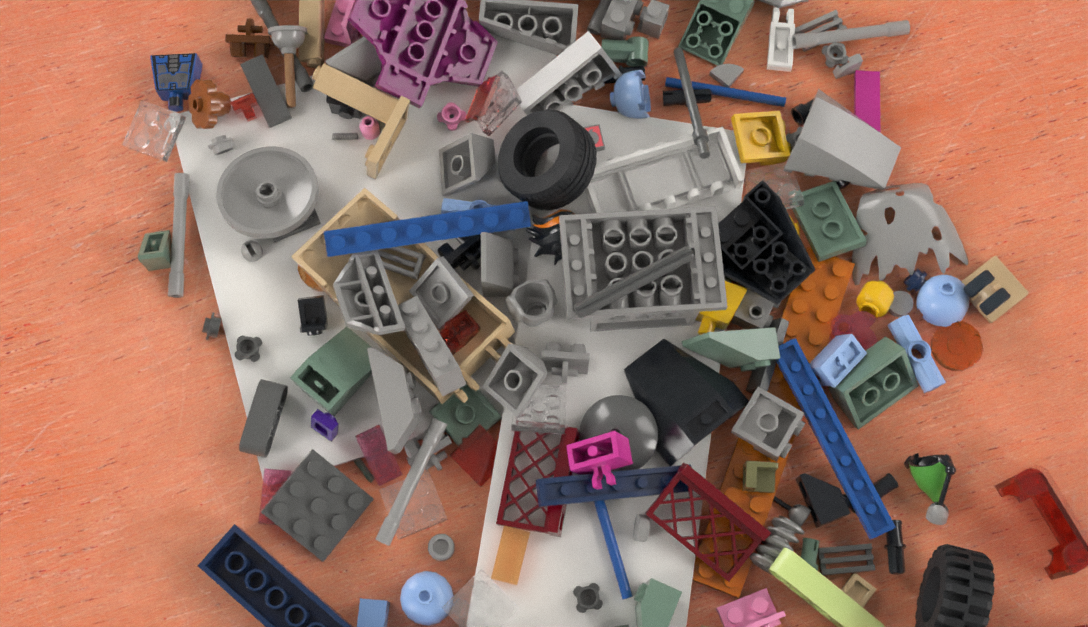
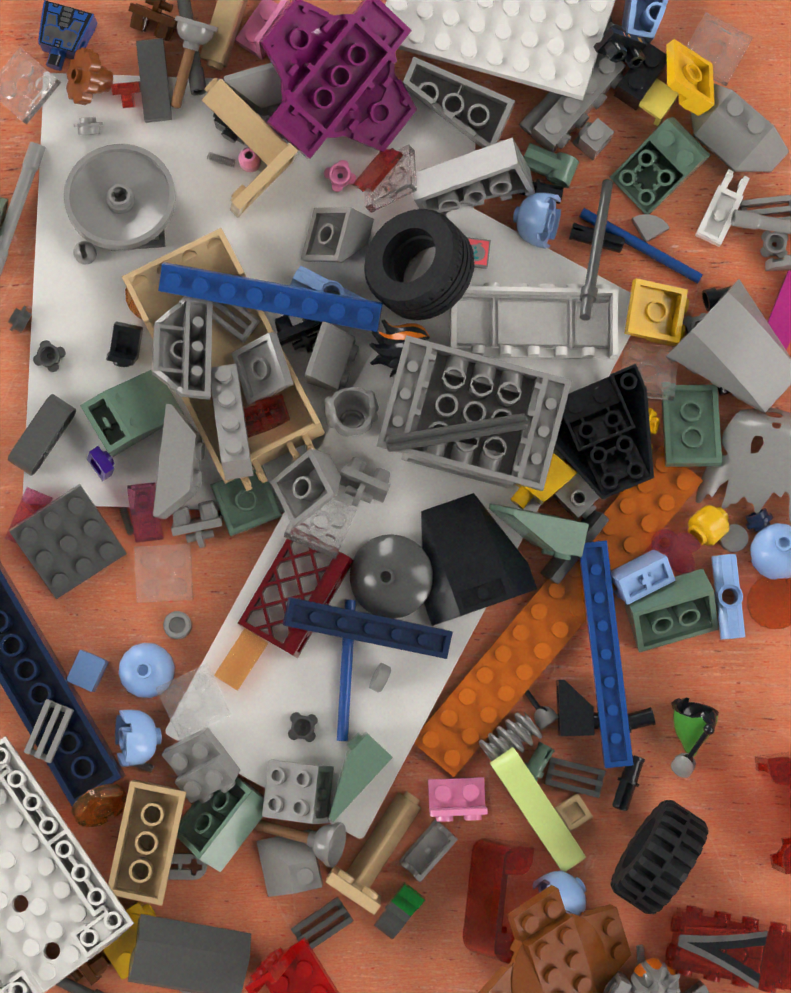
camera: 15 degrees right, 10 degrees up
(393, 519) = (137, 583): light grey piece -> none
(476, 455) = (243, 545): clear red piece -> none
(600, 456) = (360, 596): dark pink brick -> none
(721, 503) = (470, 687): dark red fence -> none
(759, 476) = (517, 667): olive panel -> none
(769, 424) = (546, 618): light grey plate -> none

